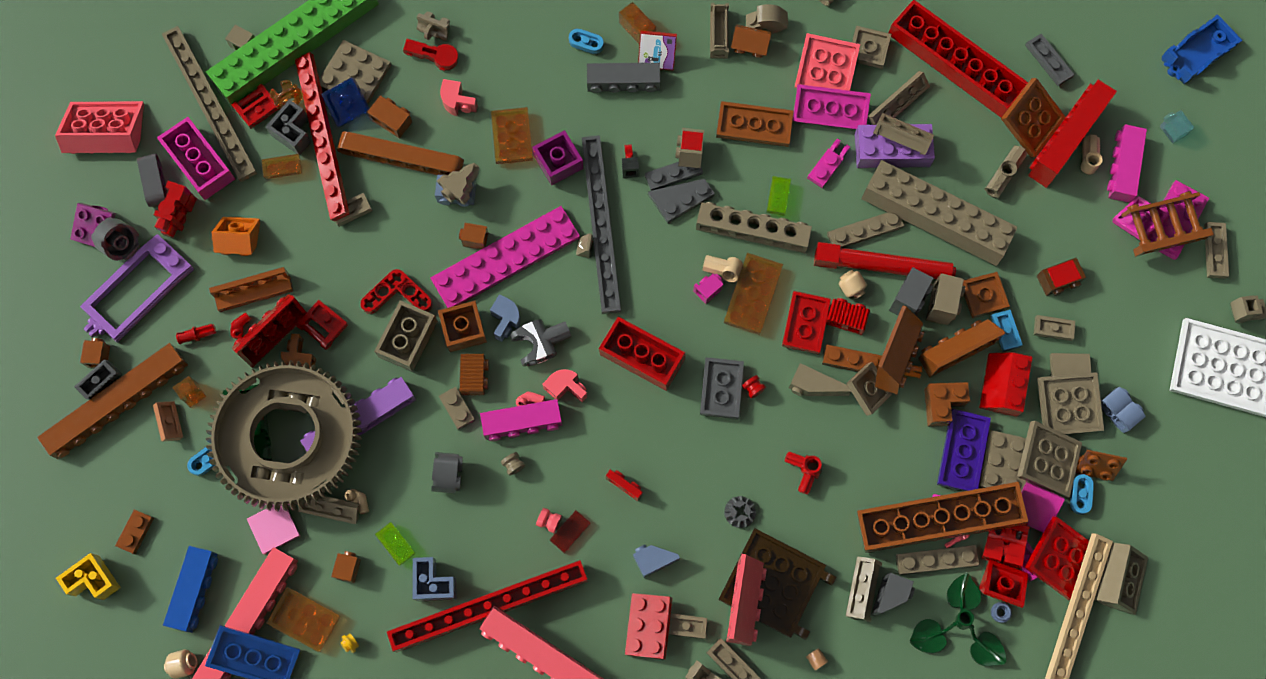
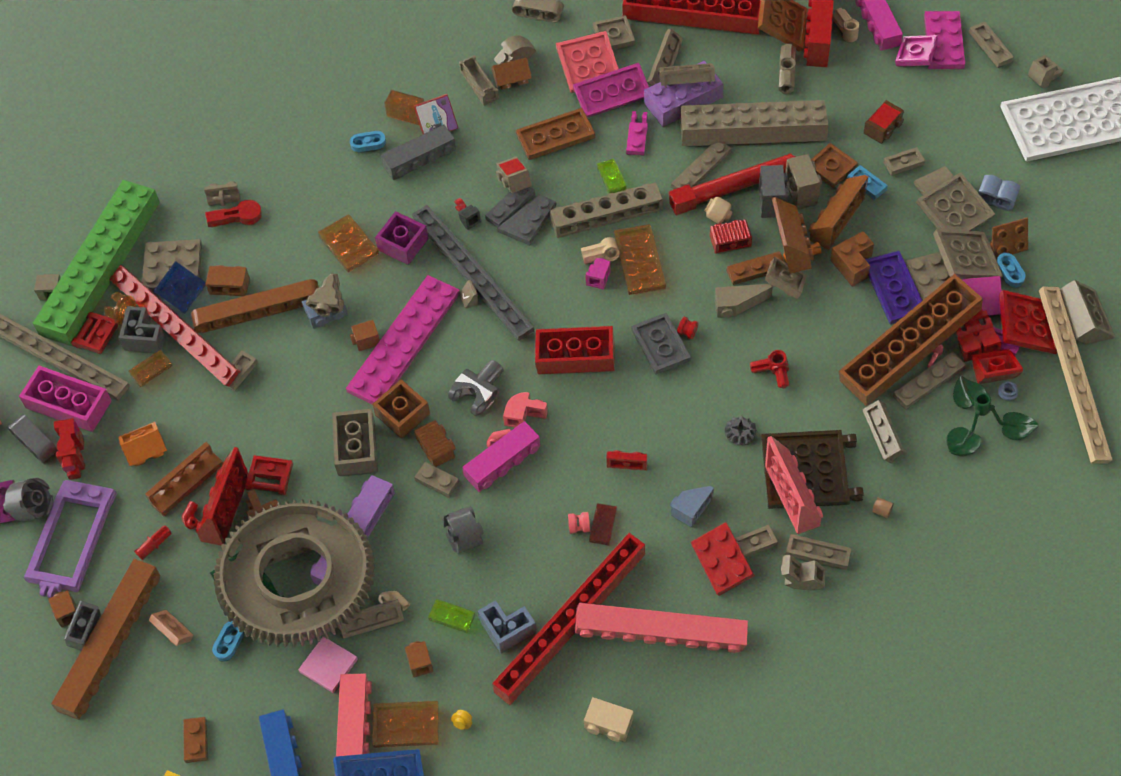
camera: 25 degrees left, 15 degrees down
(189, 391) = (177, 592): clear orange brick -> none
(398, 287) = (320, 410): red beam -> none
(453, 100) = (278, 241): coral brick -> none
(508, 313) = (434, 380): sand blue brick -> none
(513, 463) = (517, 495): dark tan wheel -> none
(806, 322) = (699, 258): red plate -> none
(892, 592) = (910, 419): dark grey slope -> none
(1005, 383) = (894, 220): red slope -> none
(1163, 241) = (946, 55): dark orange fence -> none

